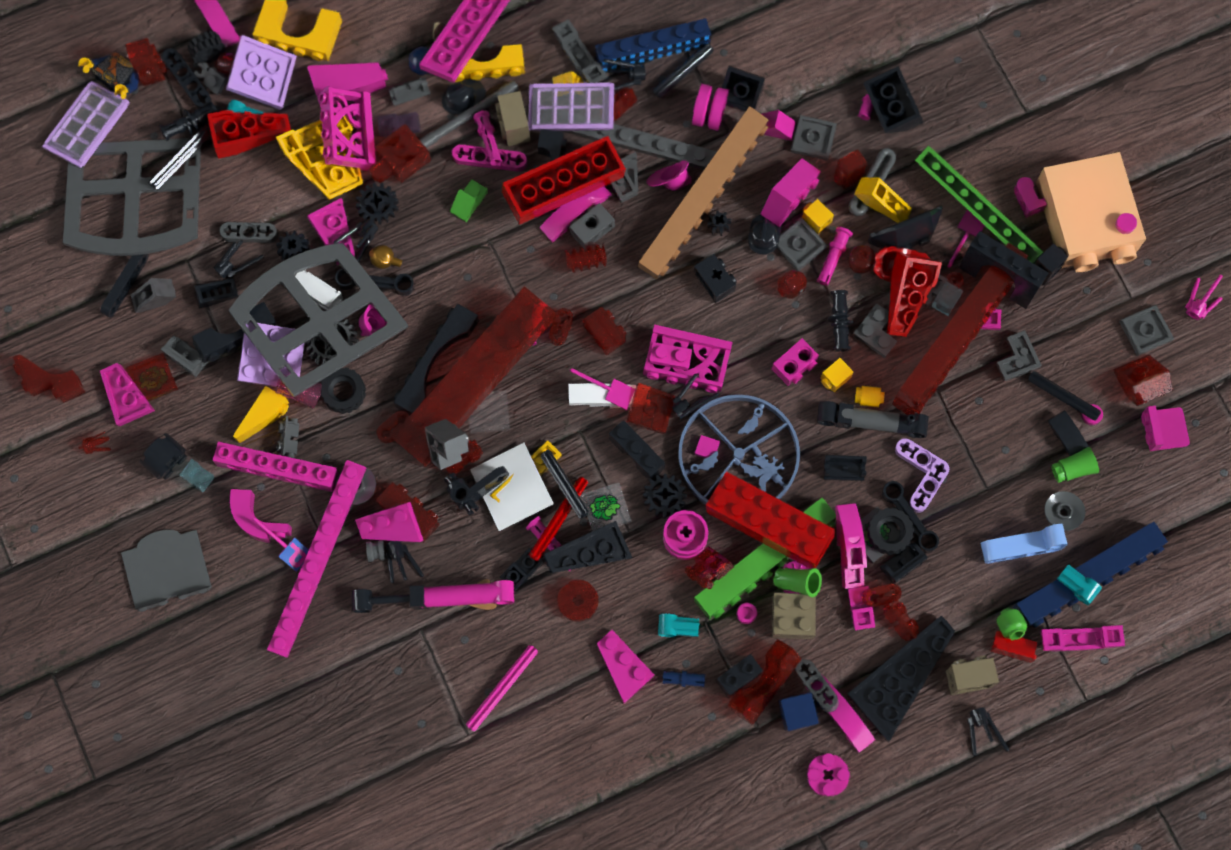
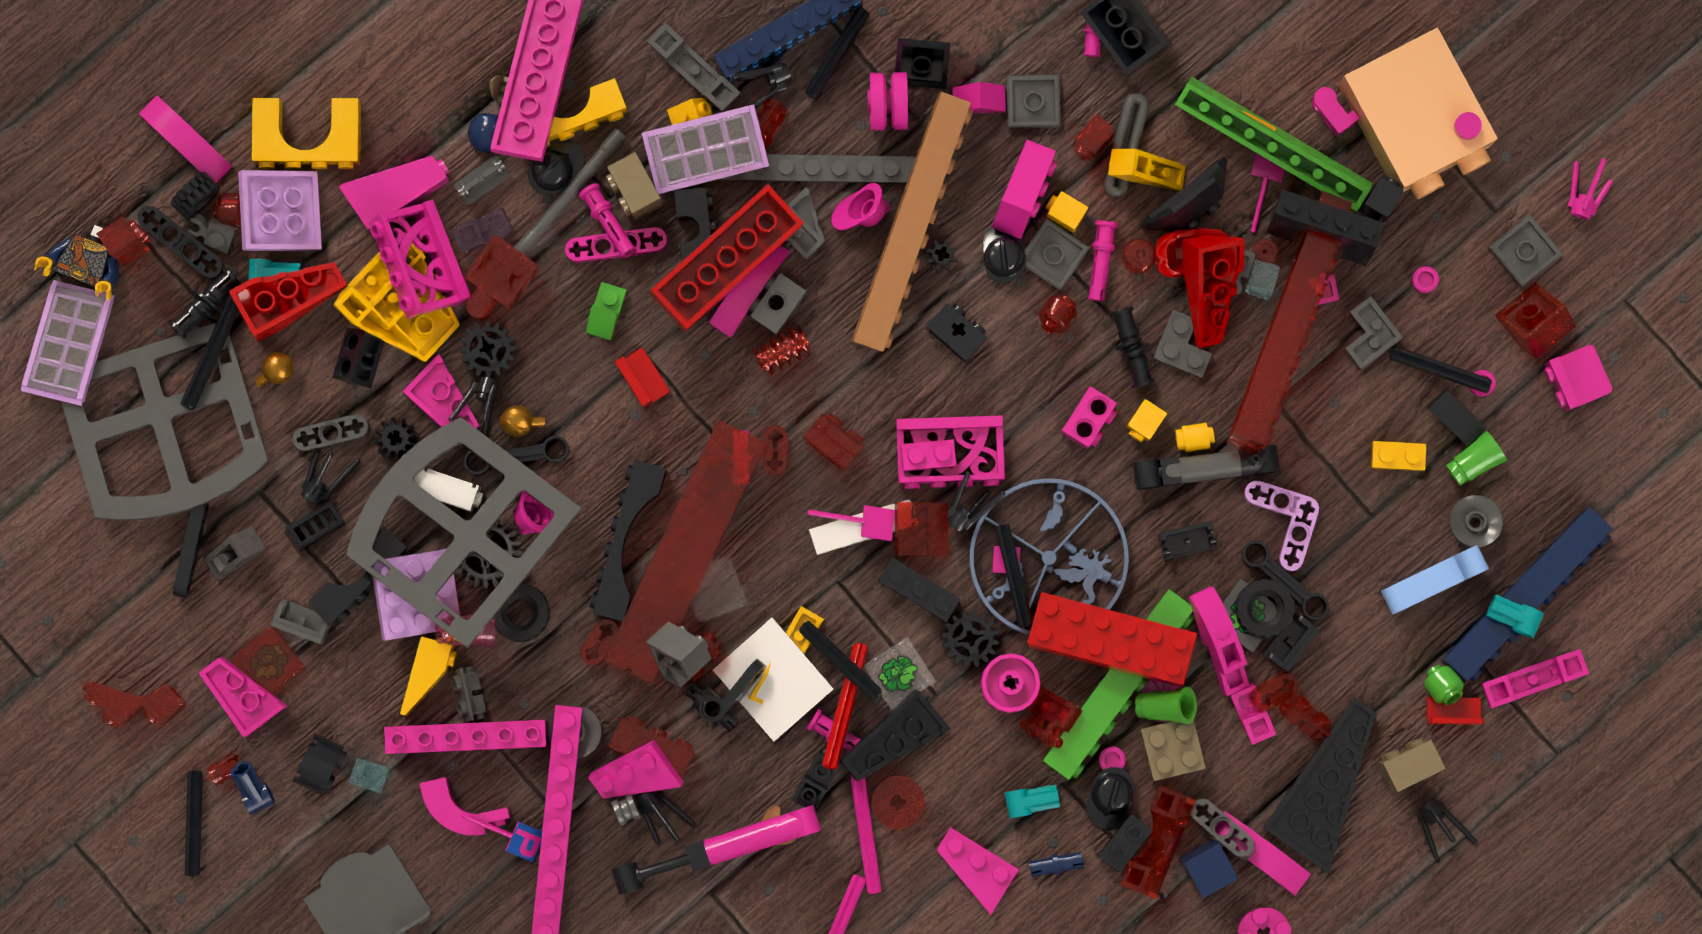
camera: 20 degrees left, 10 degrees up
(60, 476) = (193, 823): none -> black axle
(110, 465) = (253, 791): none -> dark blue piece
(224, 177) = (276, 369): none -> pearl gold piece
(284, 184) = (358, 358): none -> black brick
(480, 252) = (642, 377): none -> red panel
(547, 618) = (866, 835): none -> dark pink axle
(709, 457) = (1014, 575): none -> black axle
(737, 641) = (1110, 798): none -> black piece
(1017, 450) = (1398, 456): none -> yellow plate
(1067, 331) = (1425, 279): none -> dark pink tile

